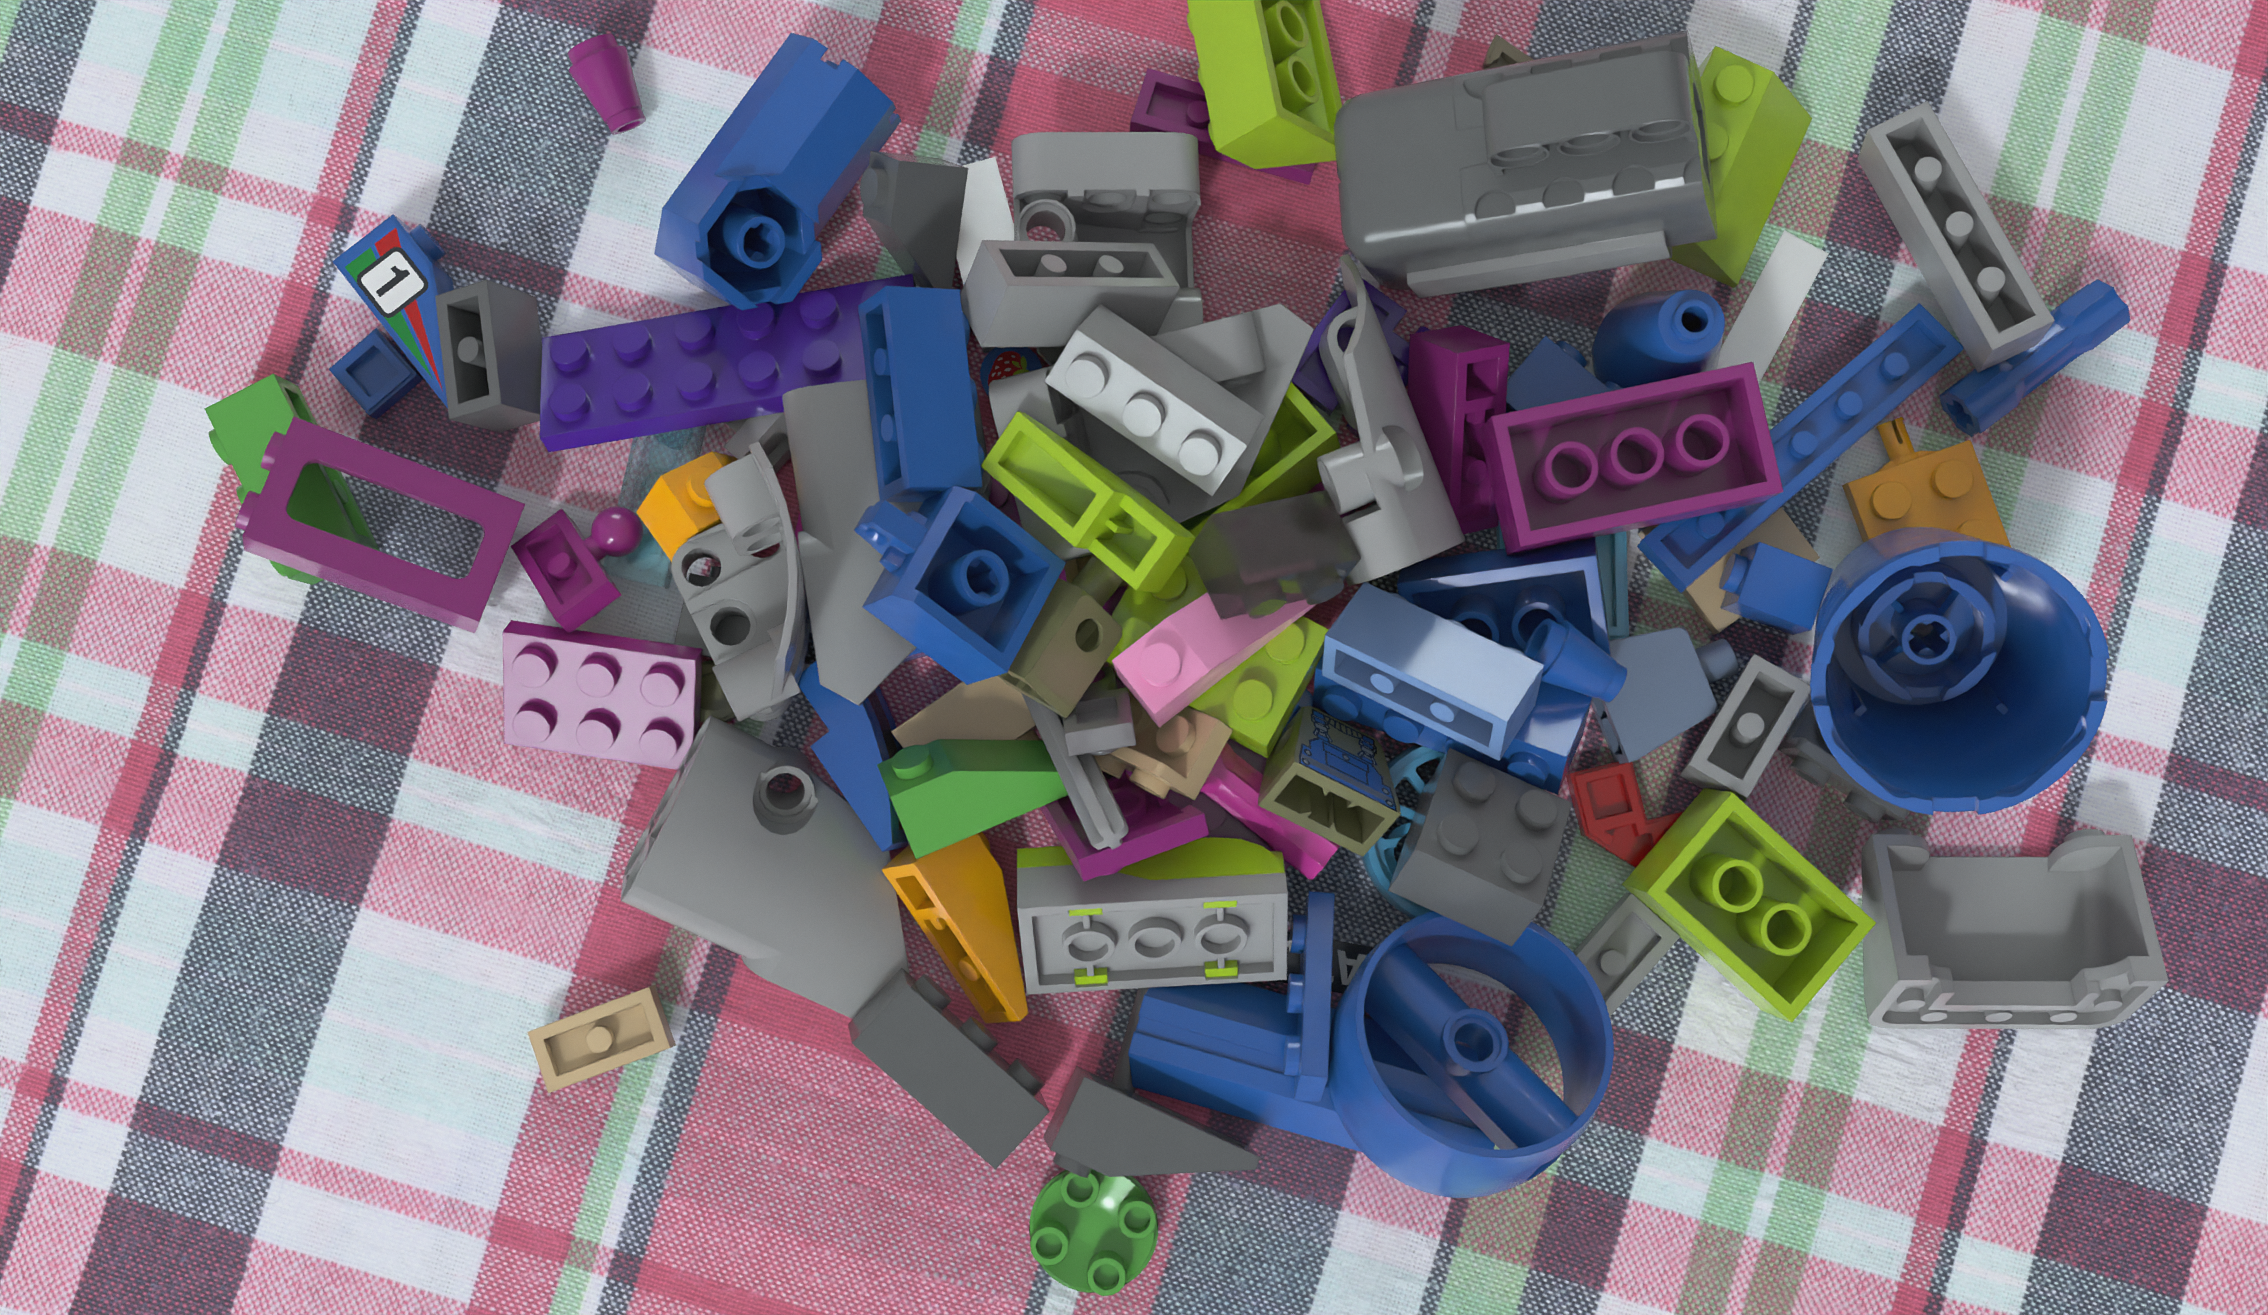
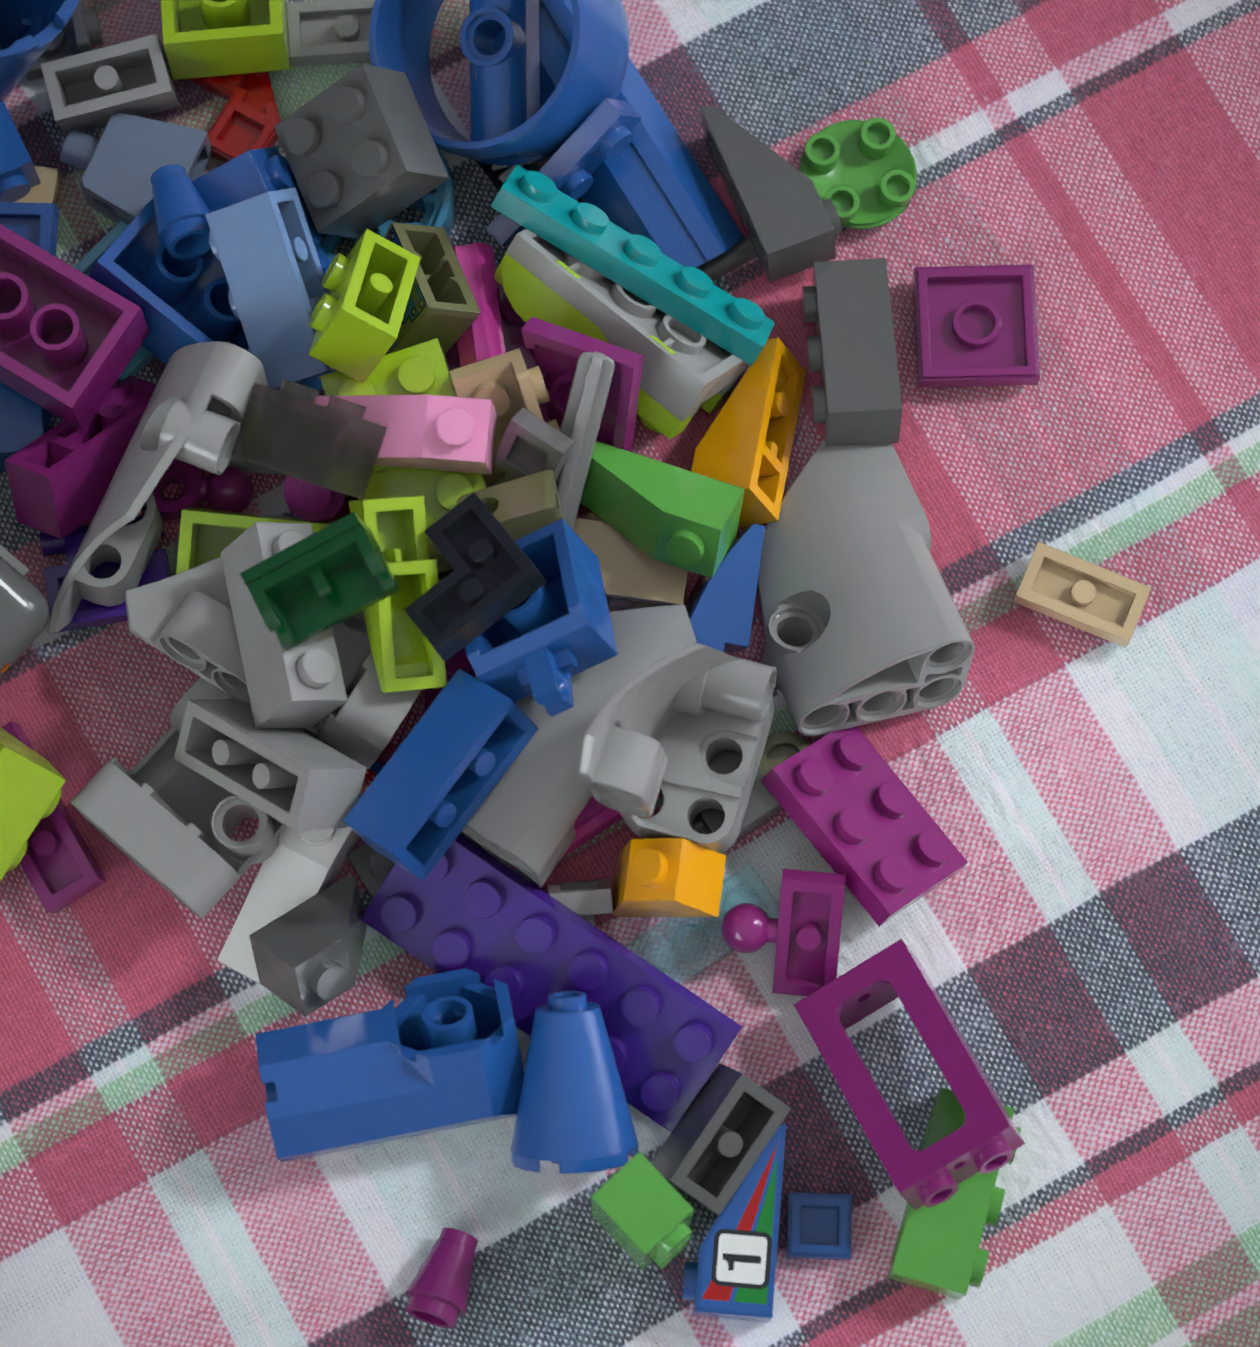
camera: 140 degrees left, 10 degrees down
(480, 232) = (643, 1213): none -> bright green brick
(615, 273) = (572, 1093): none -> blue cone
(882, 1186) = (976, 326): none -> magenta plate
(1010, 557) = (486, 581): none -> black plate
(1137, 431) = (320, 581): none -> dark green hinge
(1183, 966) = (634, 263): none -> teal plate
(1344, 711) = (363, 305): none -> lime brick

